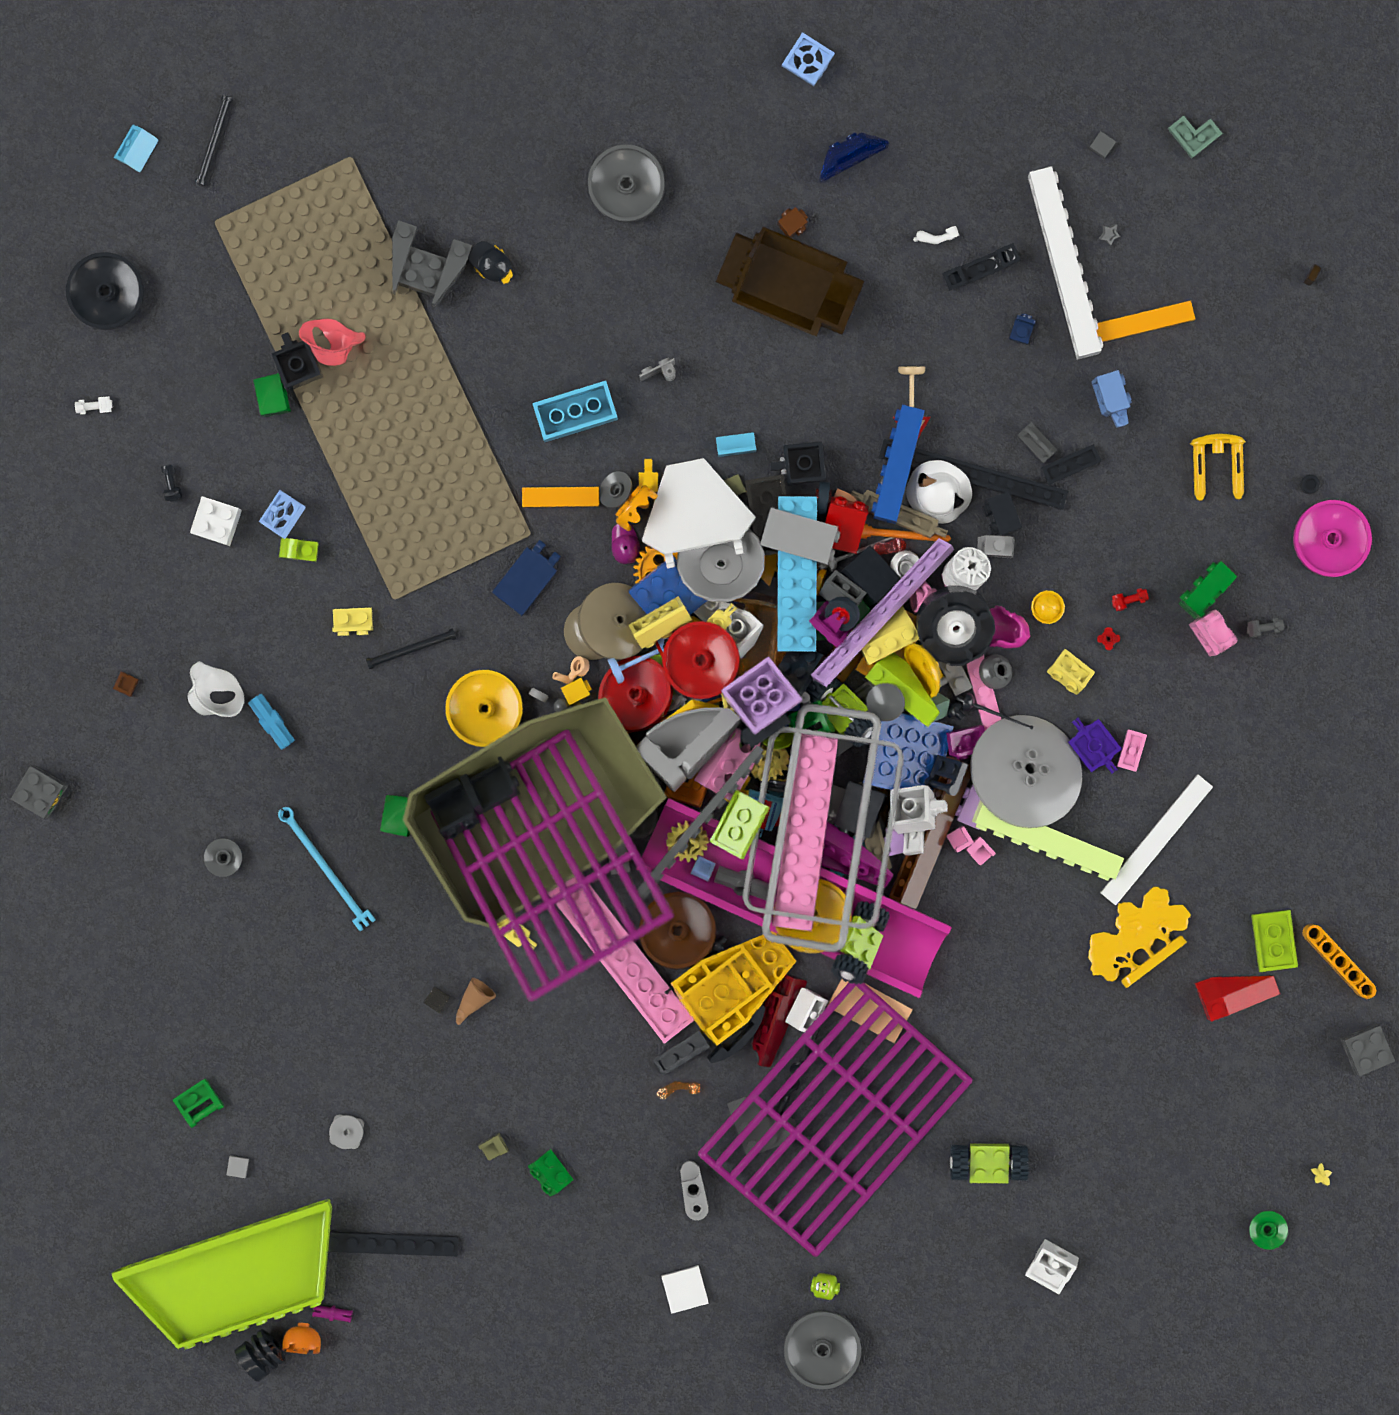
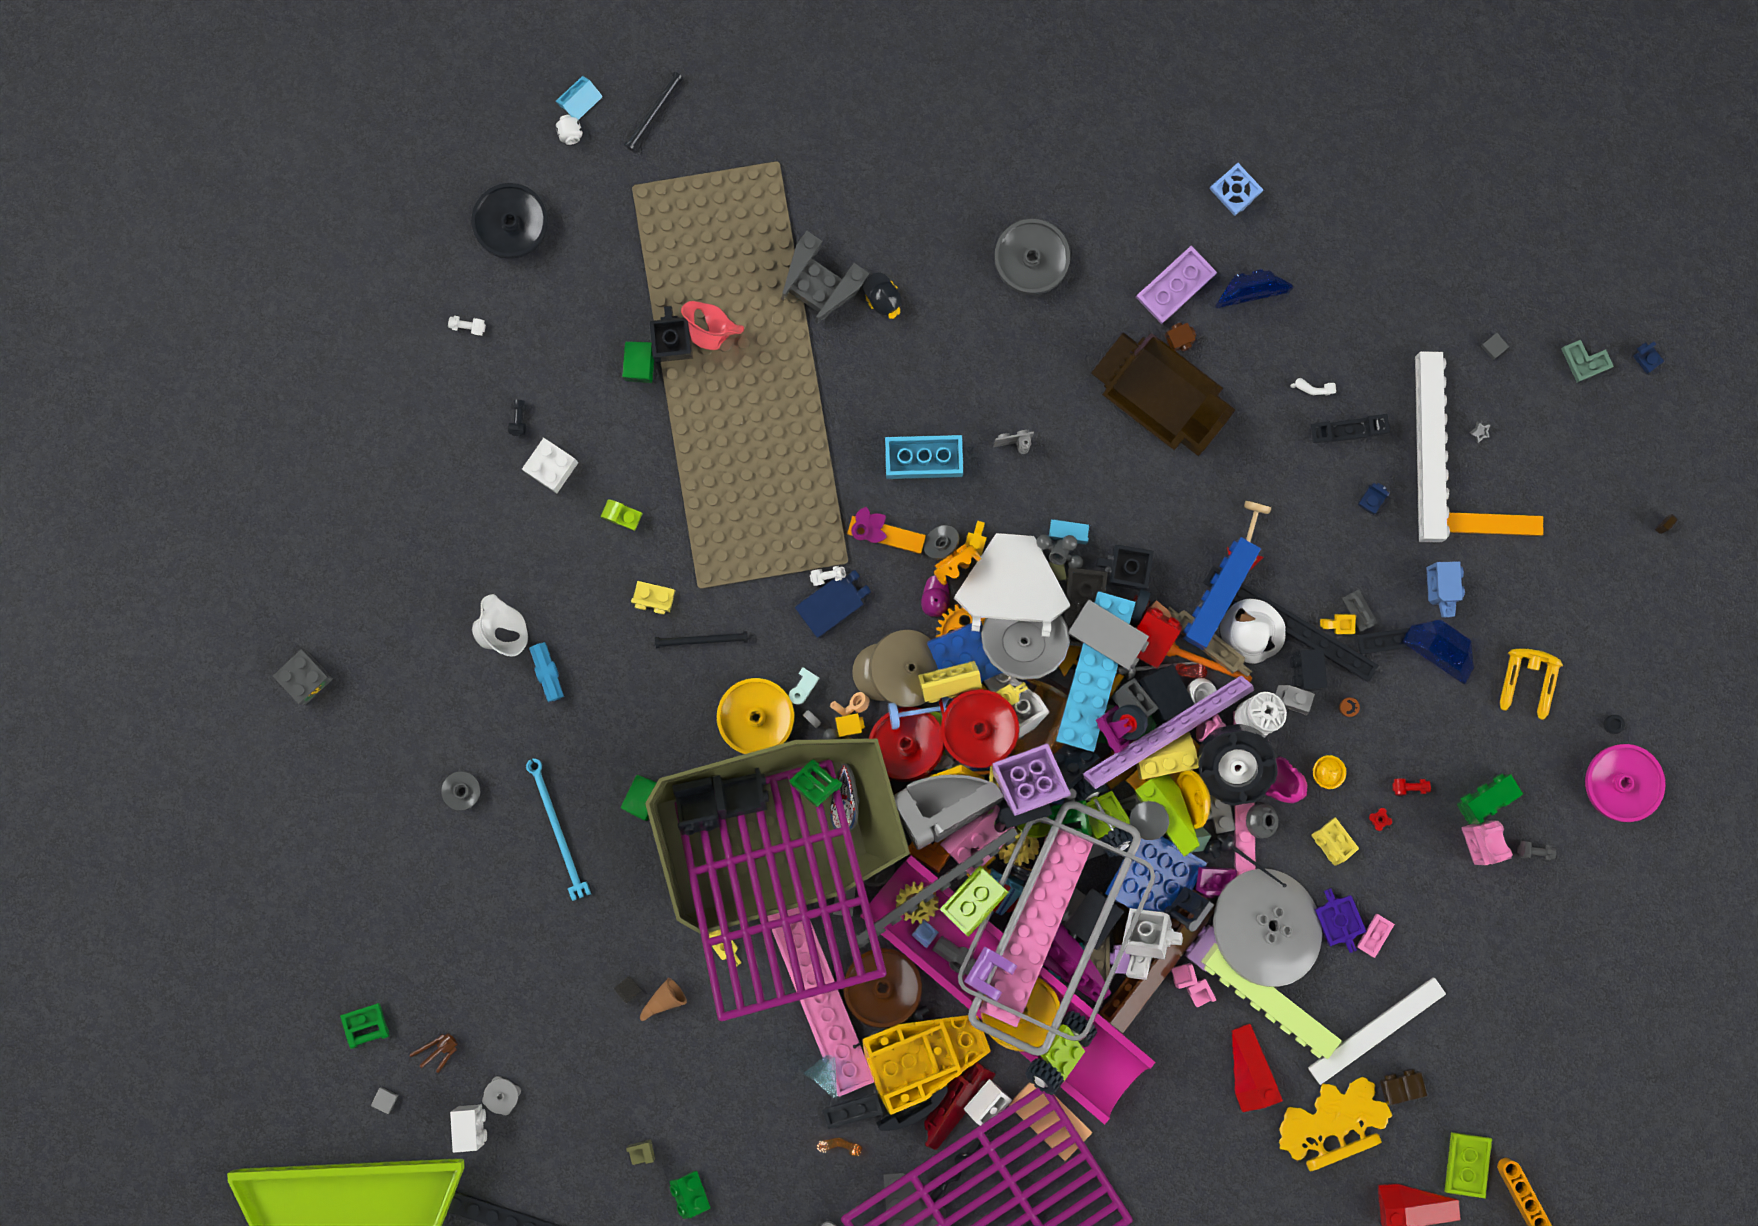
camera: 10 degrees right, 5 degrees down
(126, 684) = (418, 597): reddish brown tile -> none
(135, 183) = (569, 130): none -> white head
(274, 508) = (608, 470): light blue piece -> none
(279, 1098) = (446, 1044): none -> reddish brown plant
(324, 1169) = (468, 1128): none -> white brick
(506, 556) = (818, 576): none -> white bar
(523, 666) = (804, 687): none -> light aqua leg
(543, 491) = (871, 525): none -> magenta plate
(556, 761) = (811, 787): none -> green plate
(595, 760) = (849, 797): none -> shield
(645, 1027) = (824, 1075): none -> clear light blue slope
(732, 465) = (1060, 550): none -> dark grey piece
(764, 885) = (982, 969): none -> medium lavender connector
(775, 171) = (1176, 284): none -> lavender plate
(1023, 460) = (1341, 624): none -> yellow plate
(1050, 916) = (1254, 1082): none -> red wedge
(1051, 539) = (1349, 707): none -> dark orange tile
(1126, 456) = (1443, 647): none -> clear blue wedge
(1194, 885) = (1403, 1087): none -> dark brown brick
(1254, 114) = (1648, 357): none -> dark blue bracket

